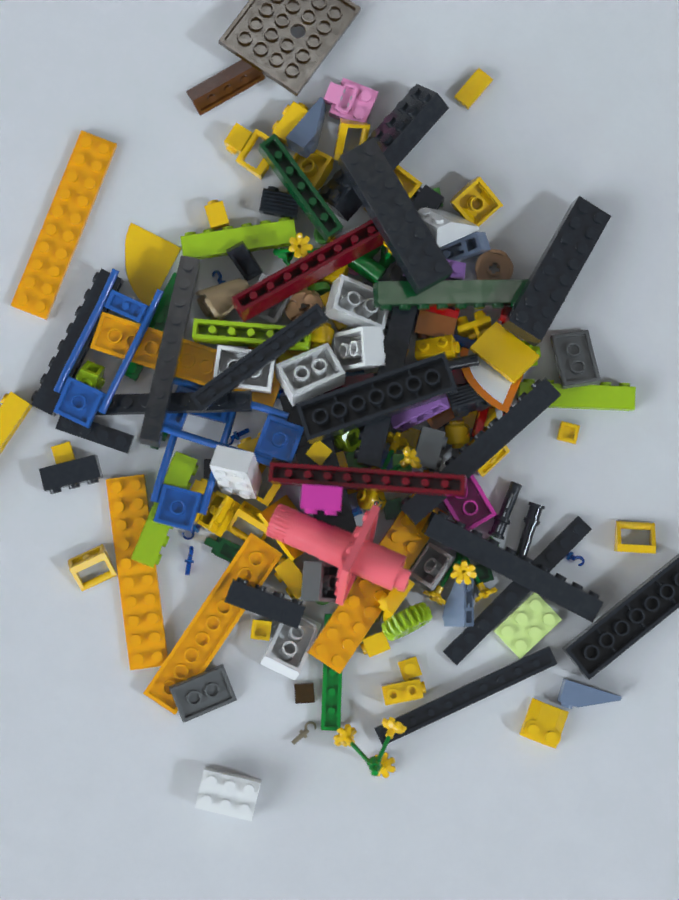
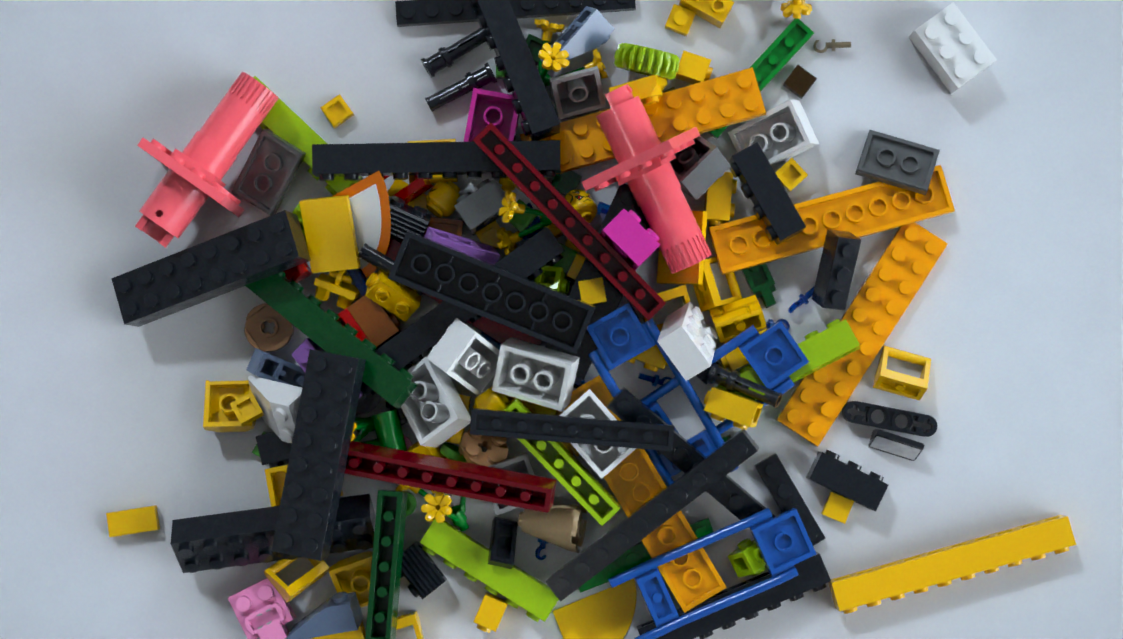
camera: 140 degrees left, 0 degrees up
(60, 520) = (895, 444): none -> slope
(75, 530) = (889, 418): none -> black beam
(176, 455) = (733, 407): none -> yellow brick
(184, 593) = (836, 269): none -> black brick
(190, 472) = (734, 378): none -> black pin
(462, 208) = (247, 409): none -> yellow plate
(616, 321) = (200, 167): none -> coral piece

